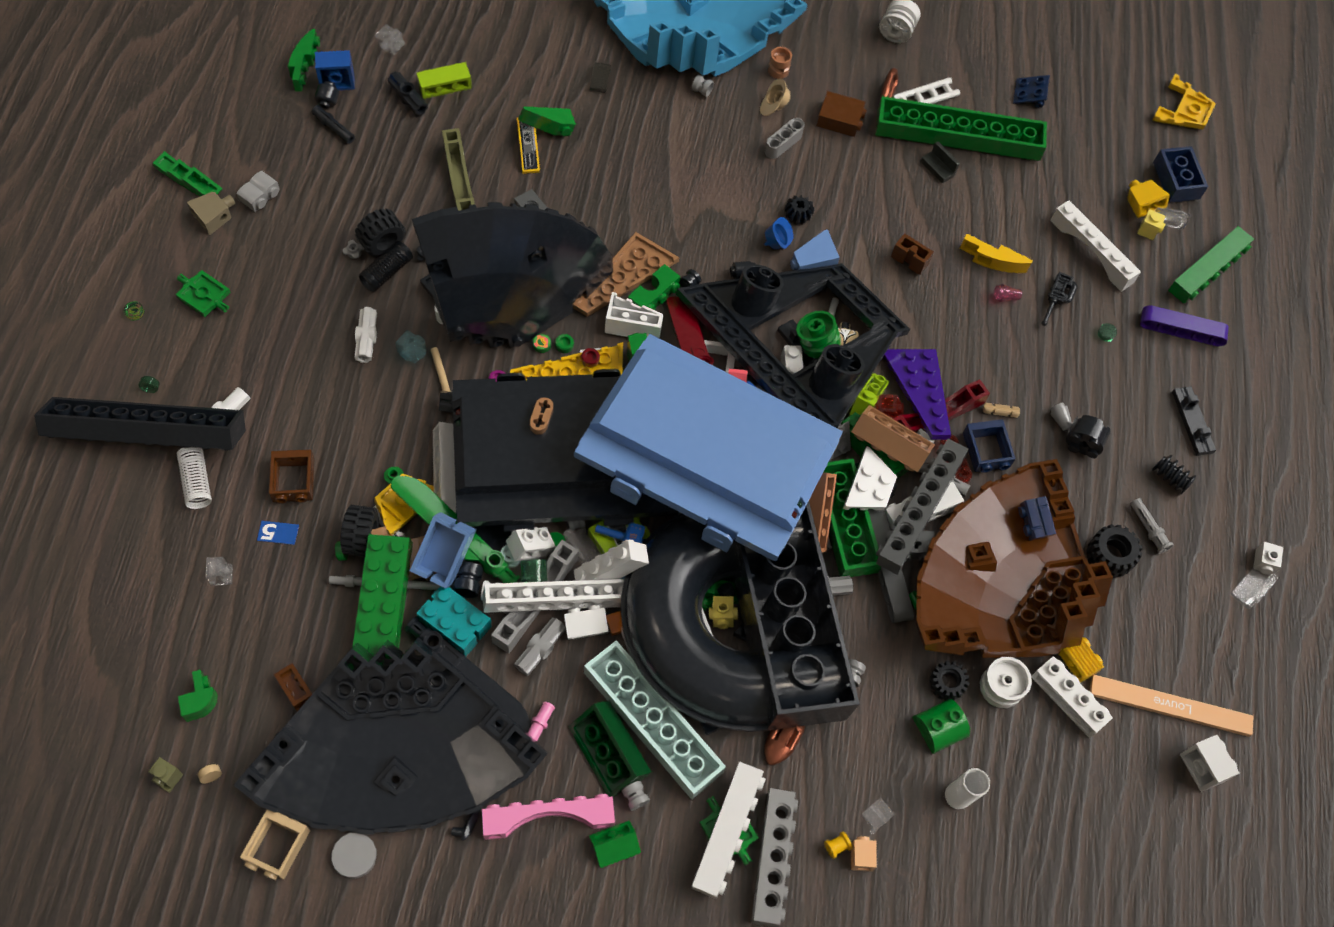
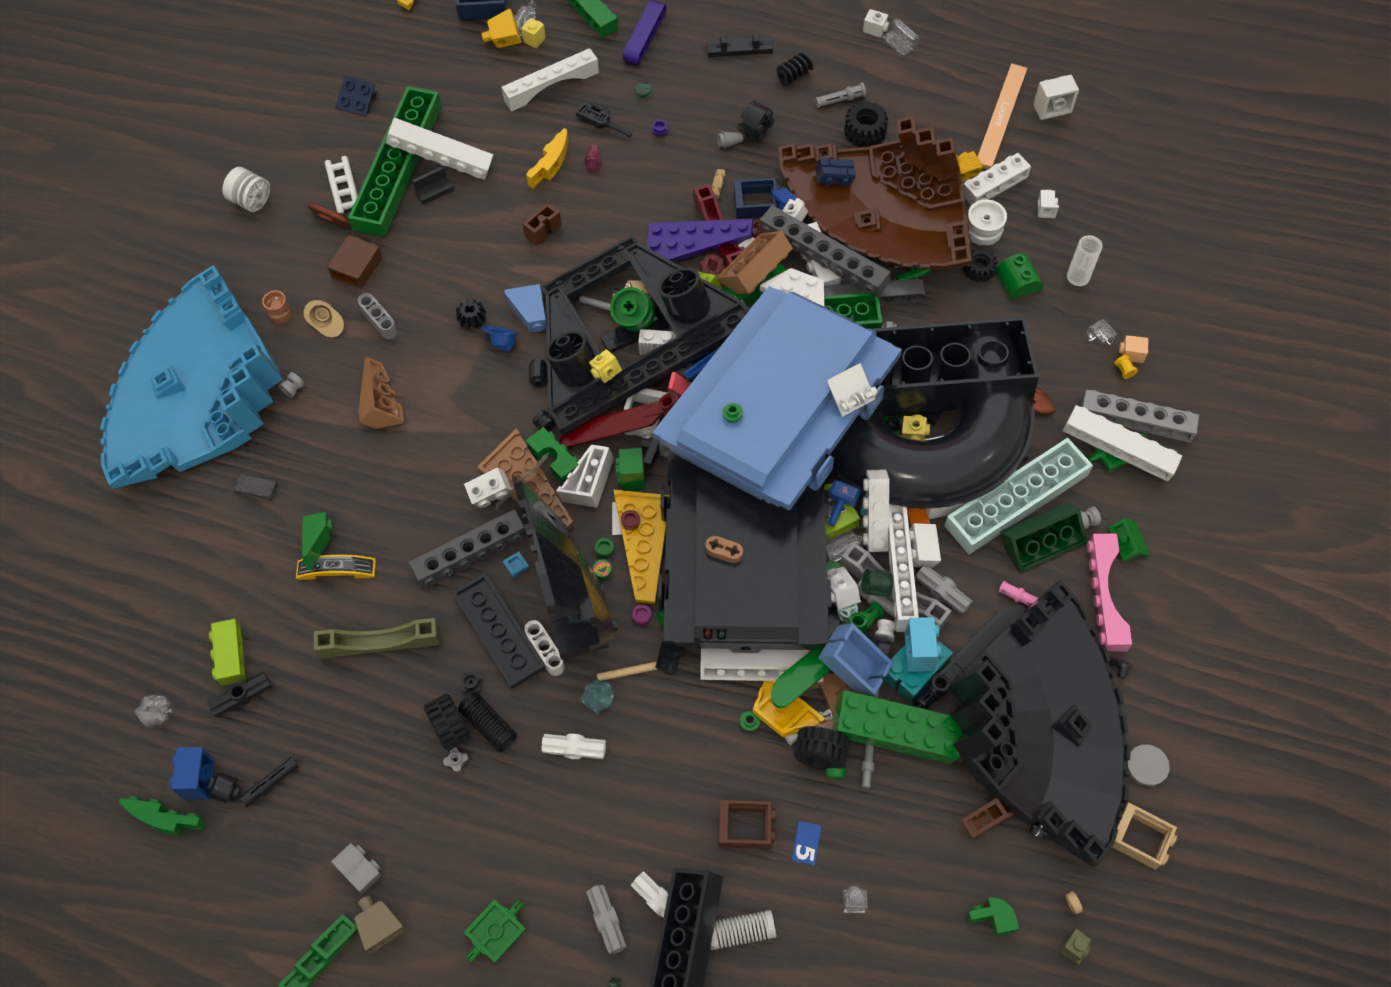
camera: 75 degrees left, 0 degrees up
(209, 373) = (606, 919): none -> light grey piece
(459, 607) = (921, 644): none -> medium azure brick
(614, 240) = (488, 488): none -> white brick
(630, 270) = (525, 477): none -> white sticker
(665, 393) = (732, 417): none -> green plate
(695, 151) = (377, 400): none -> medium nougat wedge
(711, 500) = (851, 389): none -> white hinge
(748, 315) = (605, 366): none -> light yellow brick
(970, 477) = (796, 209): none -> white brick
(977, 156) = (439, 148): none -> white brick
(986, 470) = (783, 196): none -> blue panel
(1050, 755) = (1047, 204): none -> white brick
(1060, 350) = (659, 128): none -> dark purple plate

